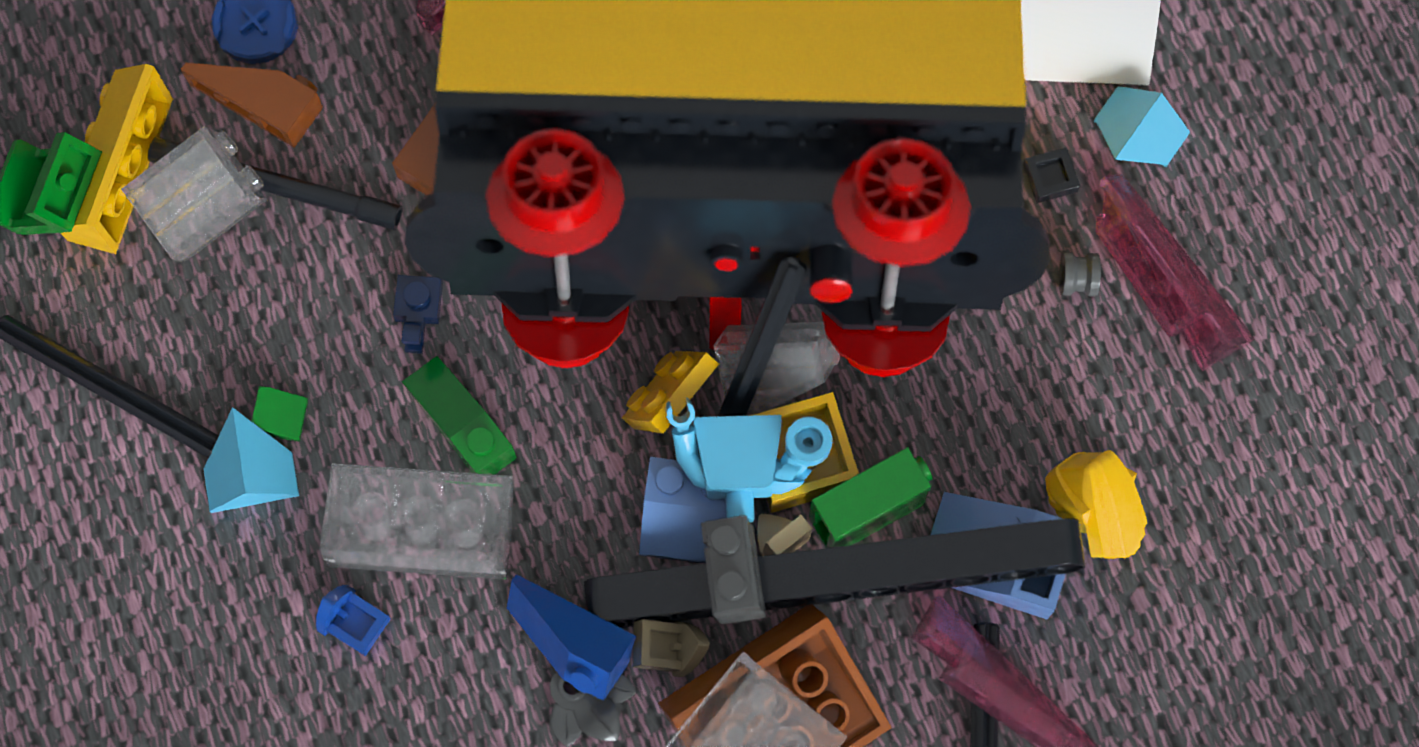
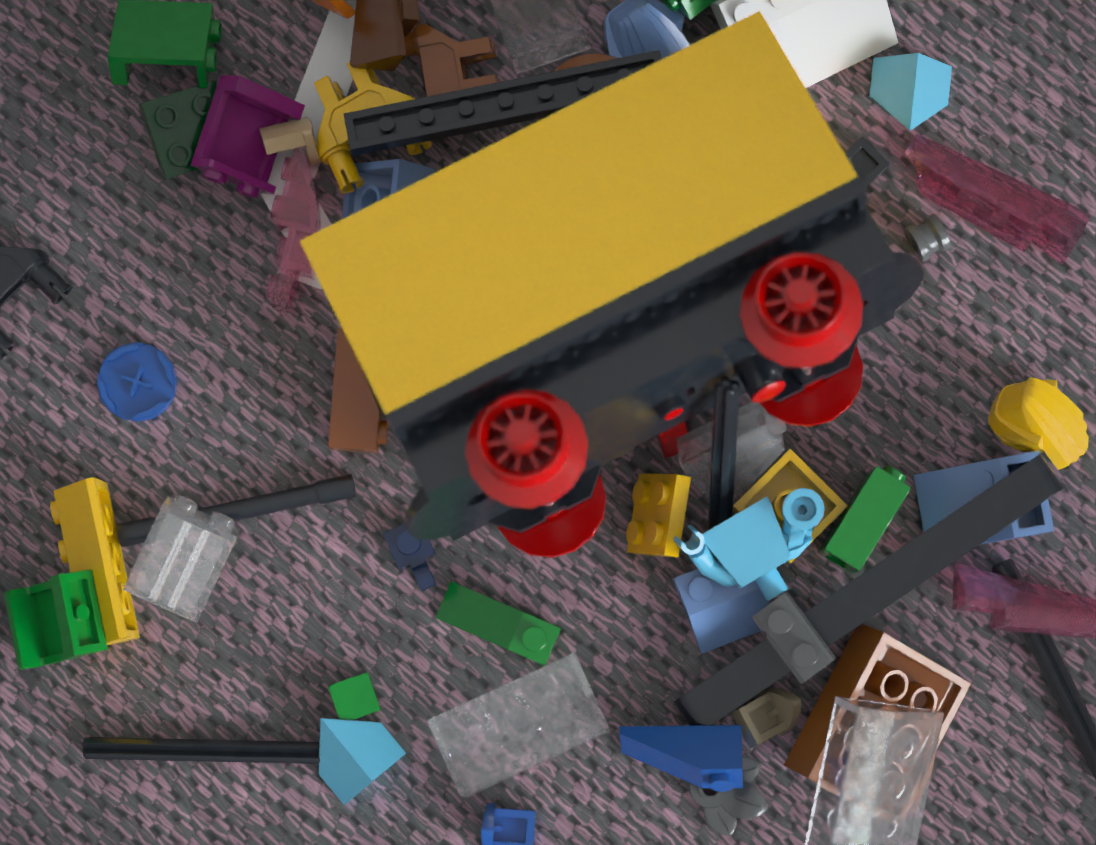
camera: 25 degrees left, 10 degrees up
(262, 96) = (188, 444): dark orange slope -> none
(780, 534) = (806, 582): tan tile -> none

